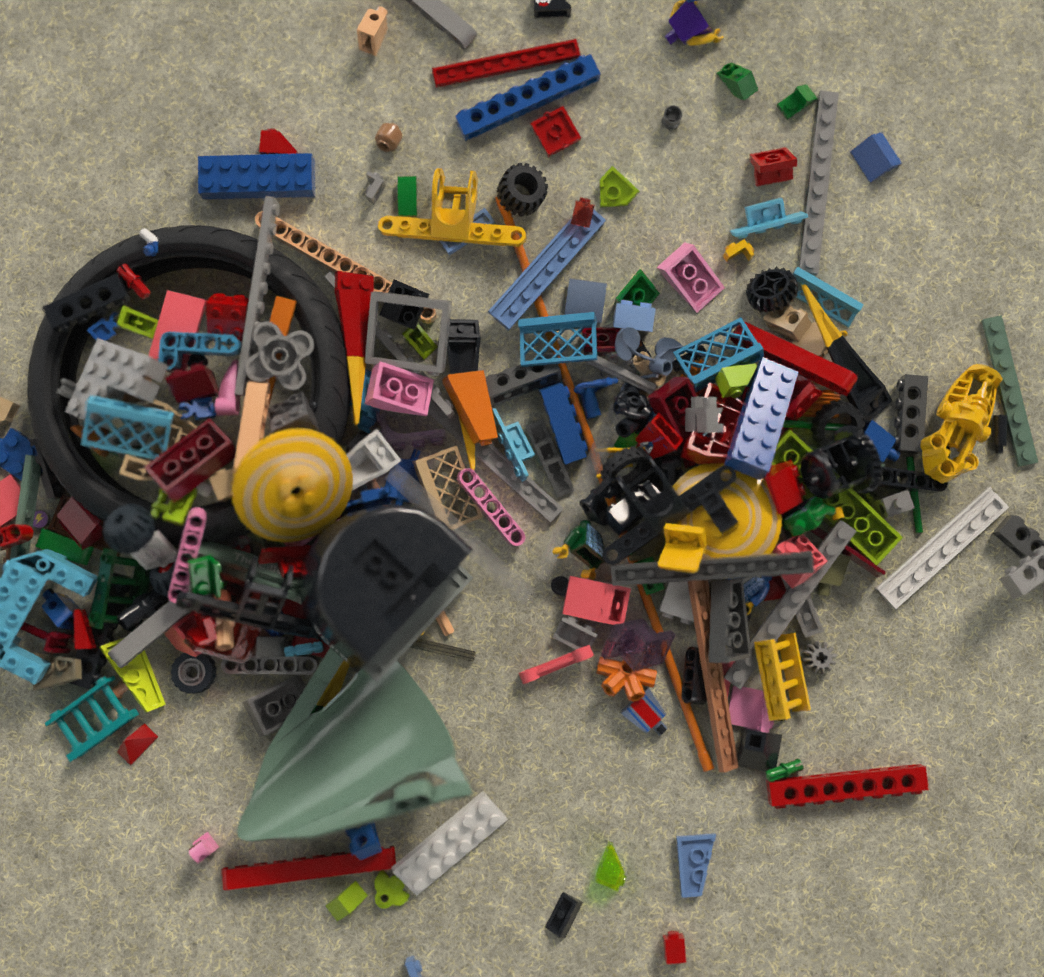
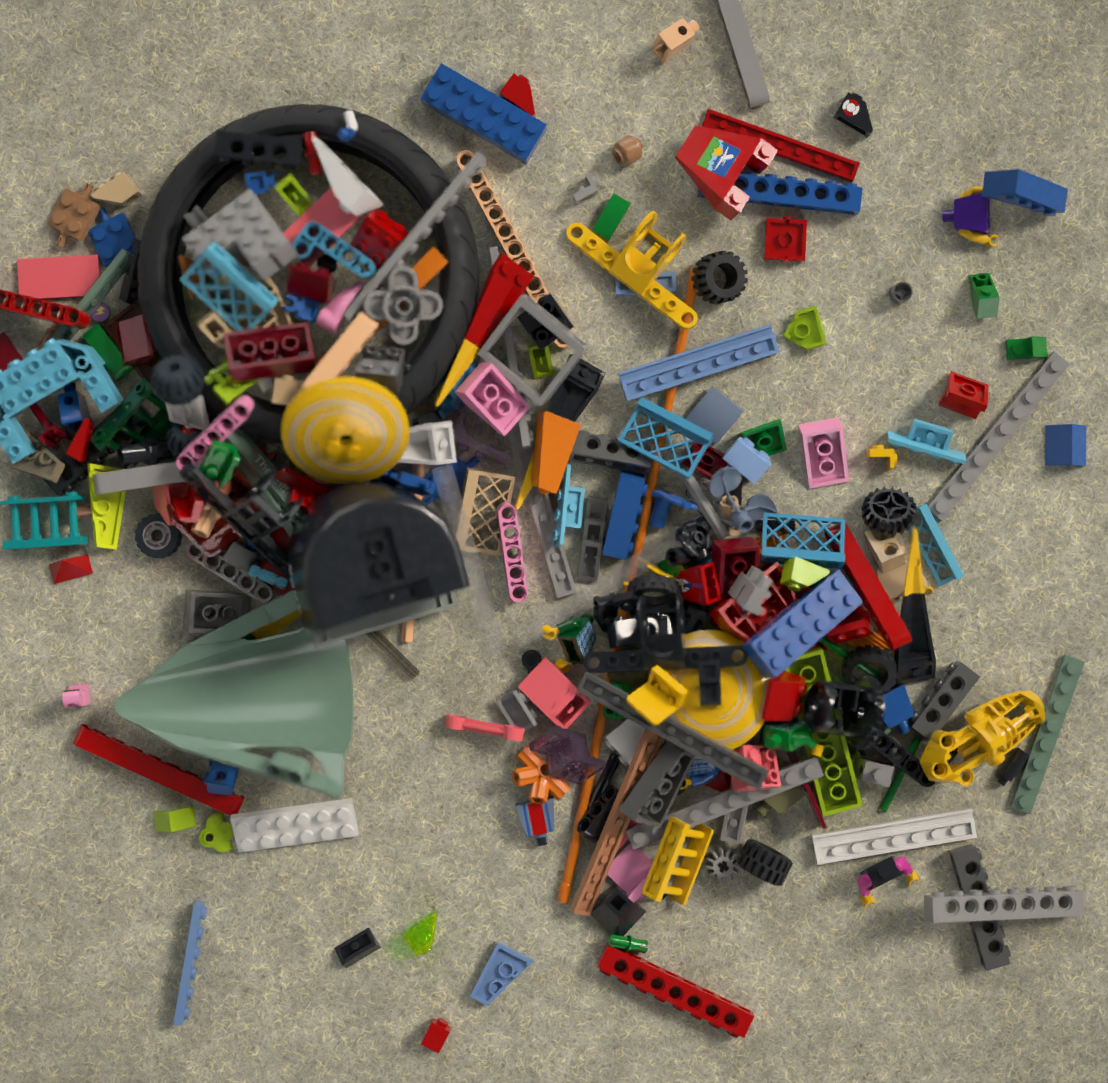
camera: 30 degrees right, 5 degrees up
(175, 289) = (350, 191): none -> white wedge
(464, 101) = (716, 160): none -> red wedge
(582, 212) = (761, 333): clear red bracket -> none
(680, 645) = (605, 777): none -> black axle
(853, 633) = (764, 862): none -> black tyre
(953, 583) = (883, 873): none -> torso

